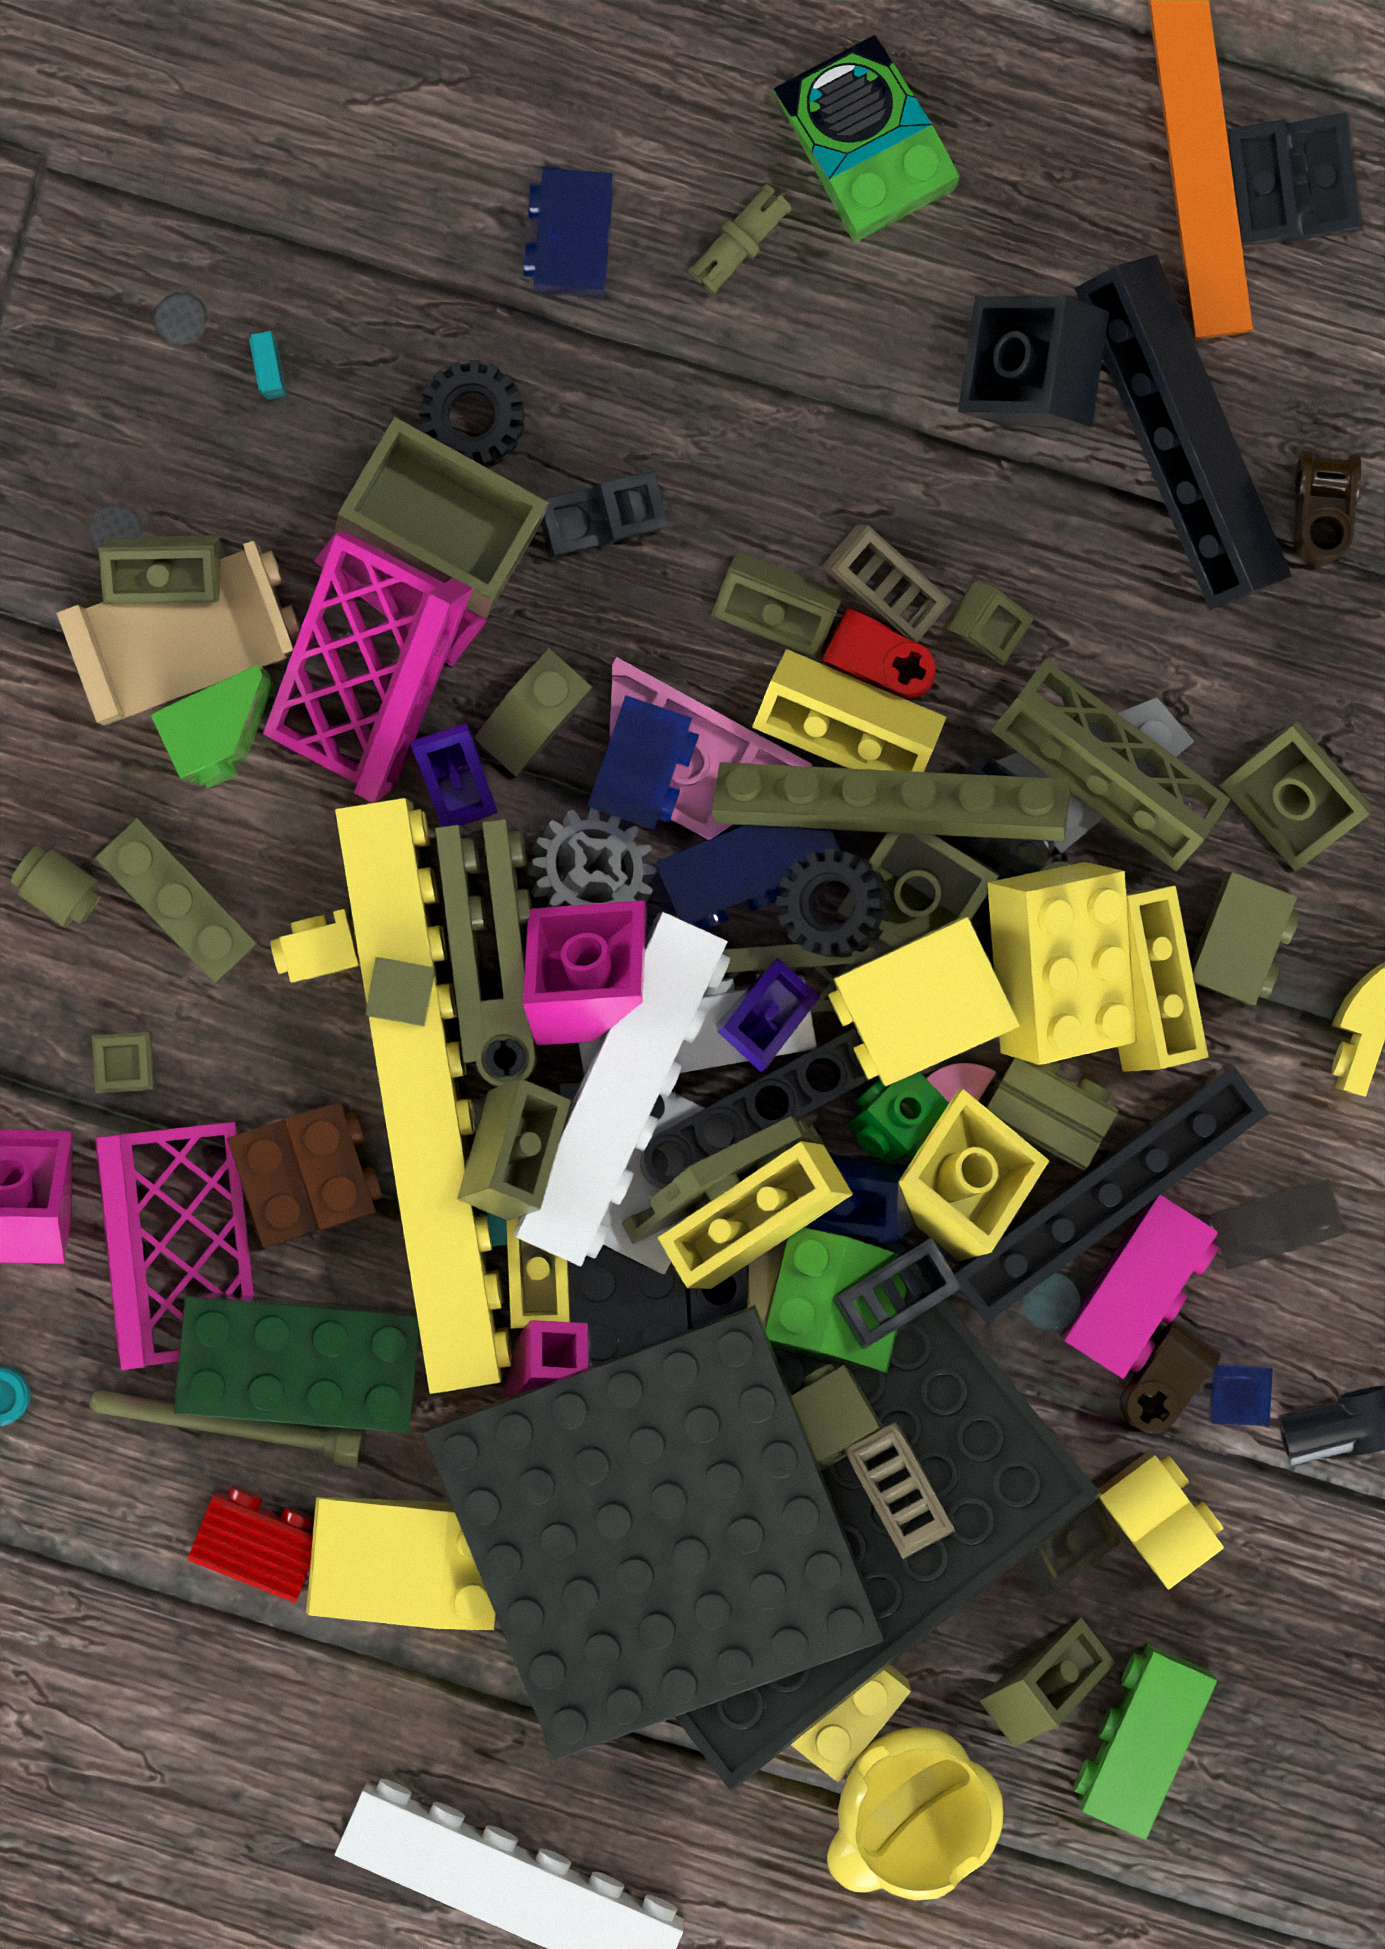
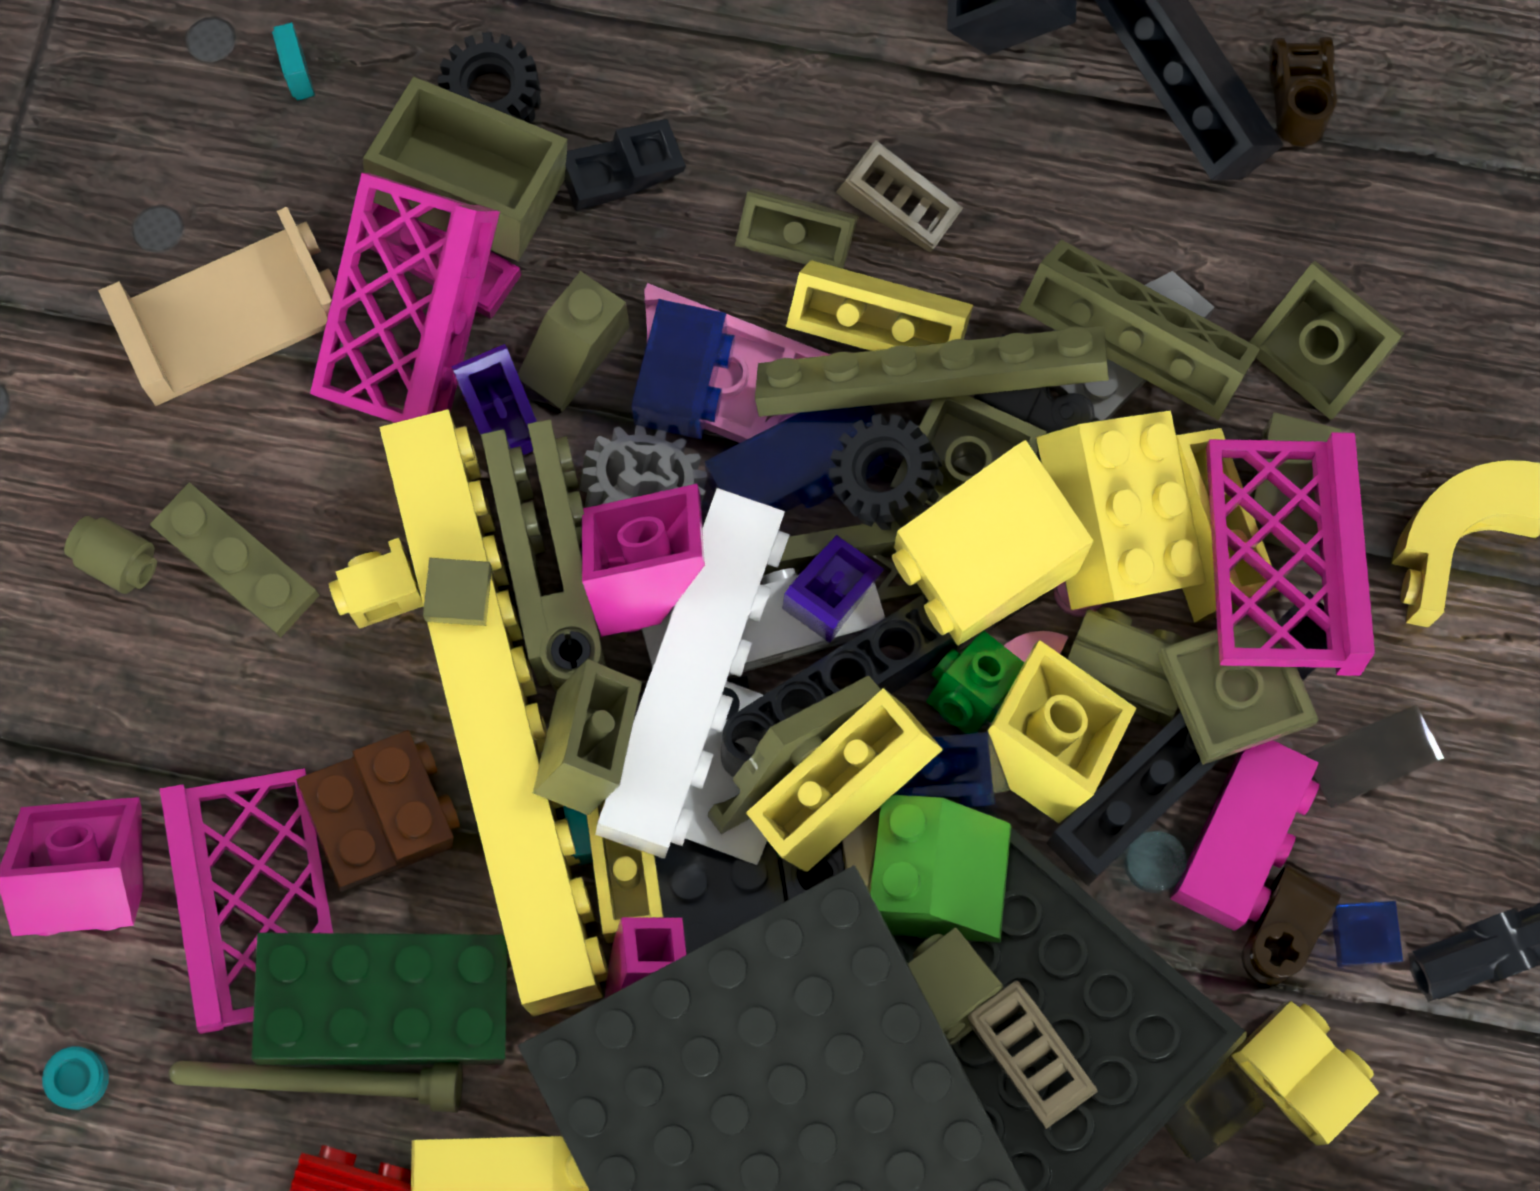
camera: 10 degrees left, 15 degrees down
(123, 1062) = (188, 722): olive tile -> none
(160, 569) = (201, 253): olive slope -> none
(215, 726) = (261, 374): bright green slope -> none
(871, 650) = (904, 256): red piece -> none
(933, 1268) = (1032, 823): black slope -> none
(989, 621) = (1002, 223): olive slope -> none
(1147, 1157) = (1234, 705): none -> olive tile
(1268, 1032) = (1341, 550): none -> dark pink fence

